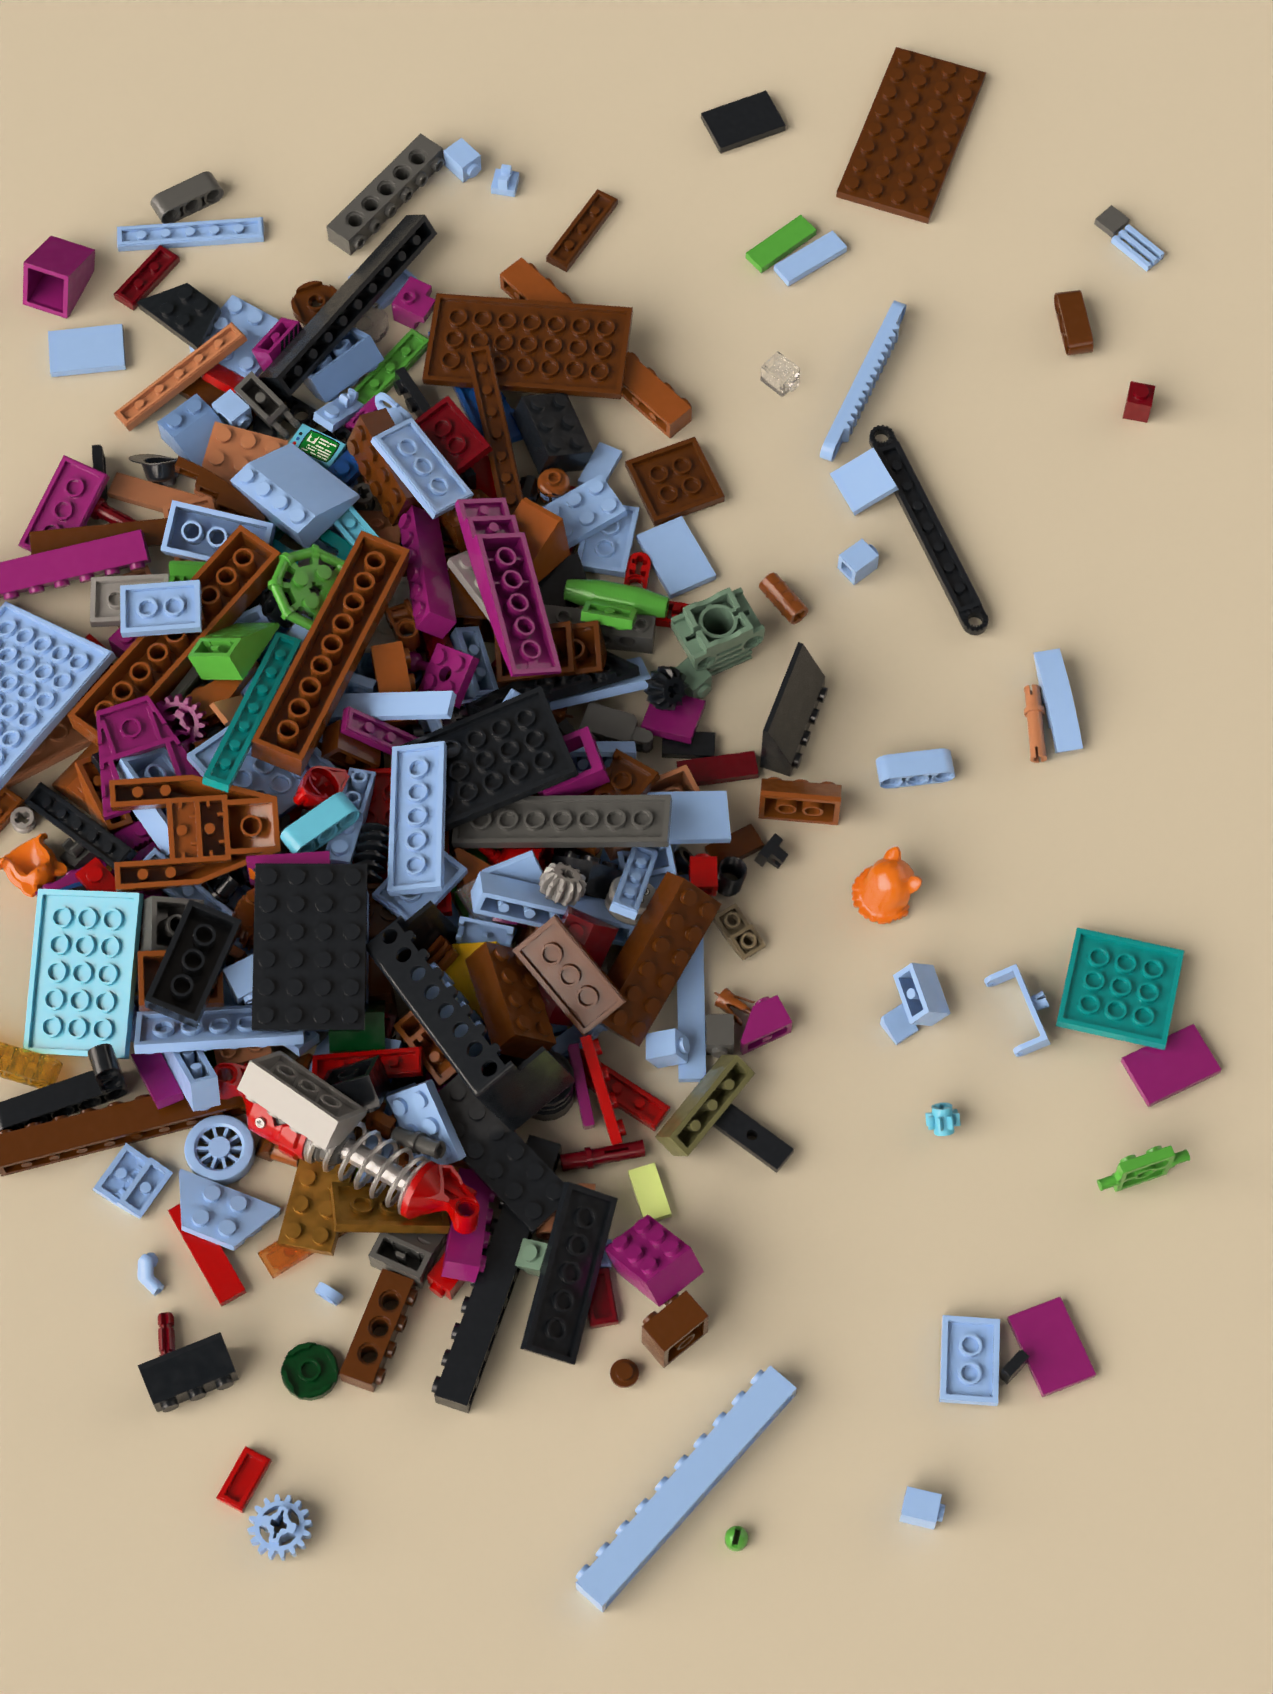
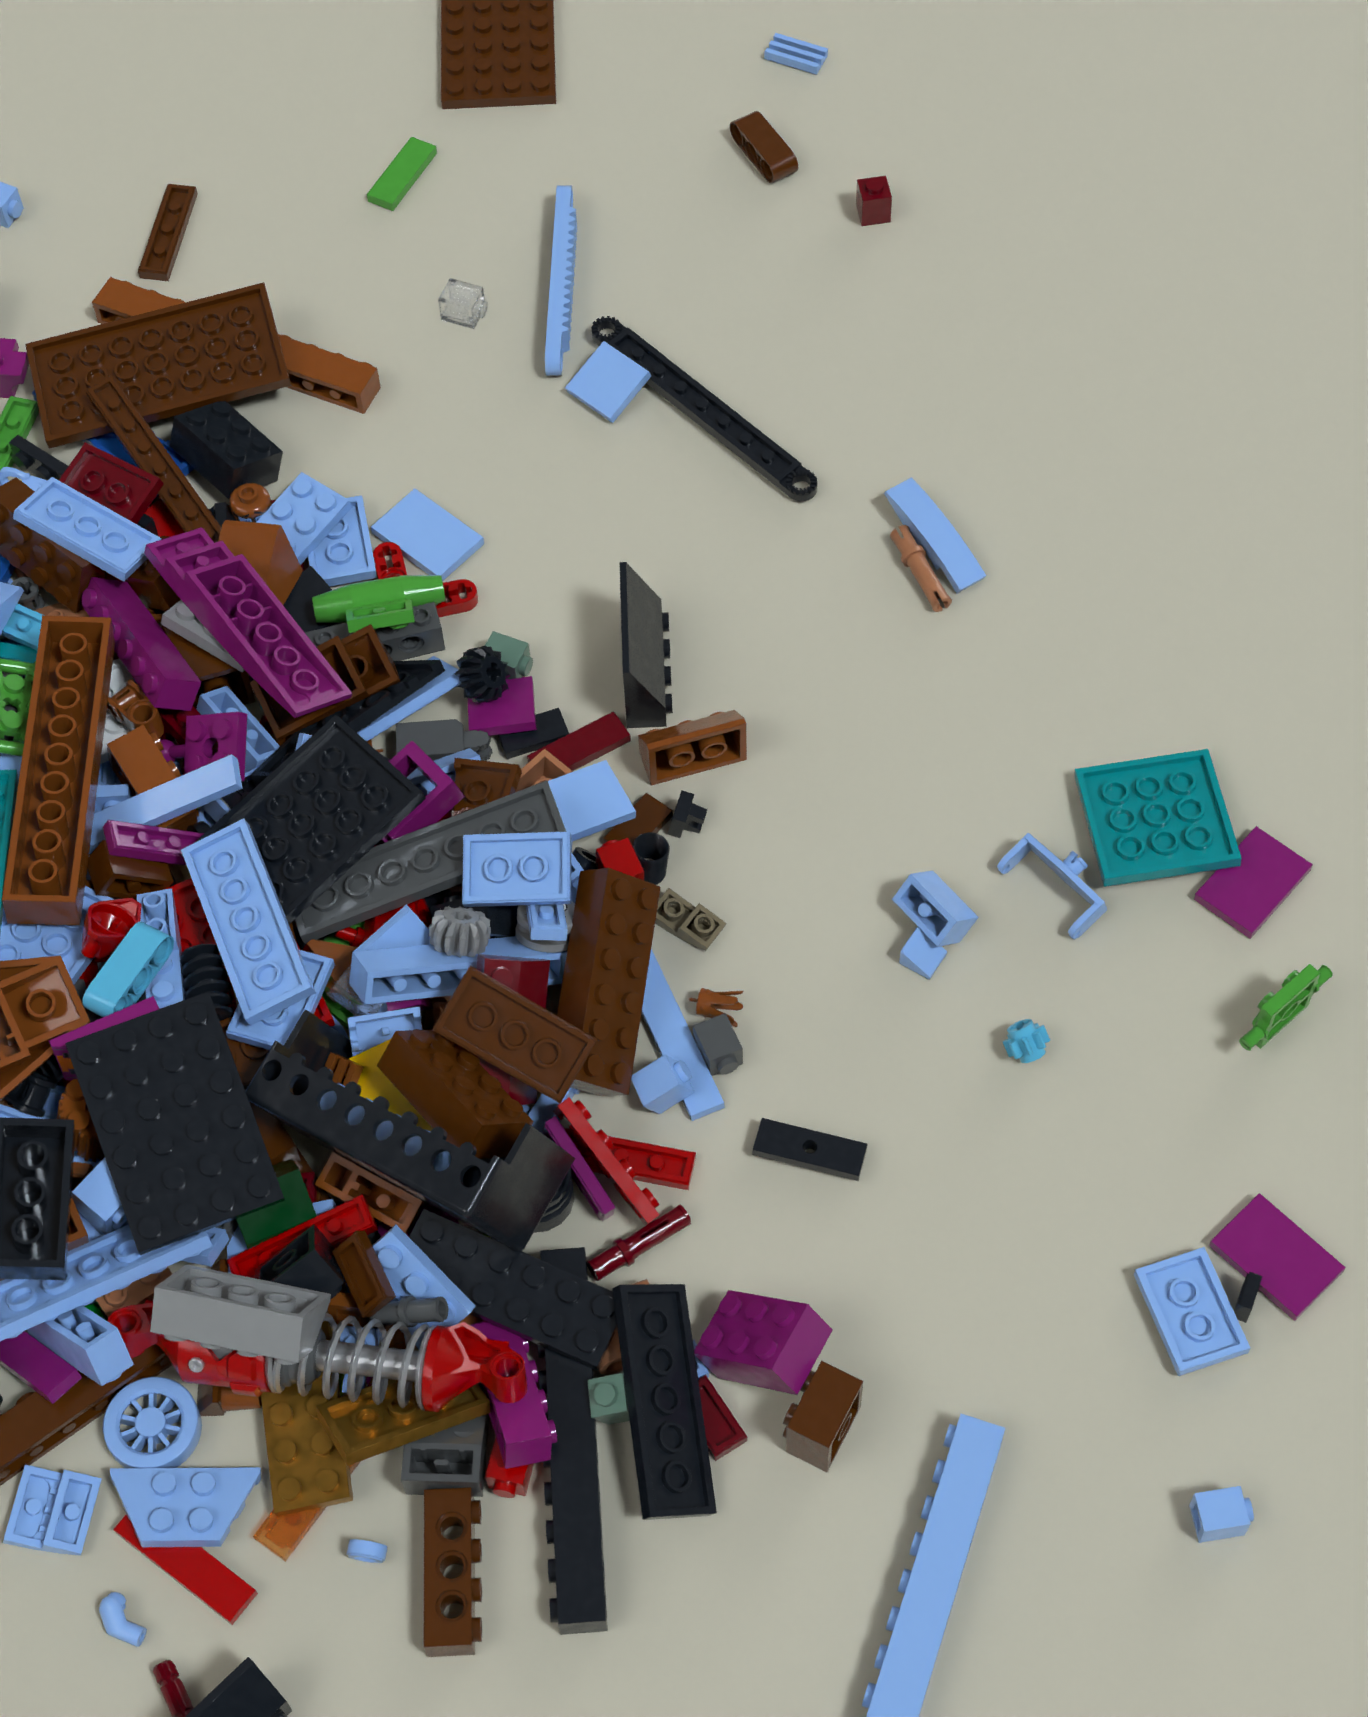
camera: 20 degrees left, 5 degrees down
(309, 1371) = (382, 1661): dark green tile -> none
(397, 1104) = (363, 1274): none -> reddish brown tile
(505, 181) = (56, 209): light blue tile -> none
(601, 462) = (295, 459): light blue tile -> none
(621, 853) = (516, 869): none -> light blue tile
(624, 1373) = (783, 1498): reddish brown plate -> none
(649, 1192) = (715, 1264): yellowish green tile -> none
(674, 481) = (390, 454): reddish brown plate -> none
(705, 1105) = (738, 1133): olive brick -> none
(718, 631) = (516, 590): sand green piece -> none
(743, 121) = (304, 66): black tile -> none
(743, 1539) = (1004, 1648): bright green hinge -> none
(765, 1024) = (768, 1011): magenta slope -> none
(783, 598) = (572, 535): dark orange axle -> none
(810, 258) = (441, 177): light blue tile -> none
(858, 561) = (640, 467): light blue brick -> none
(885, 888) = (837, 806): orange hair -> none
(915, 768) = (808, 664): light blue beam -> none
(1111, 221) = (755, 37): dark grey tile -> none

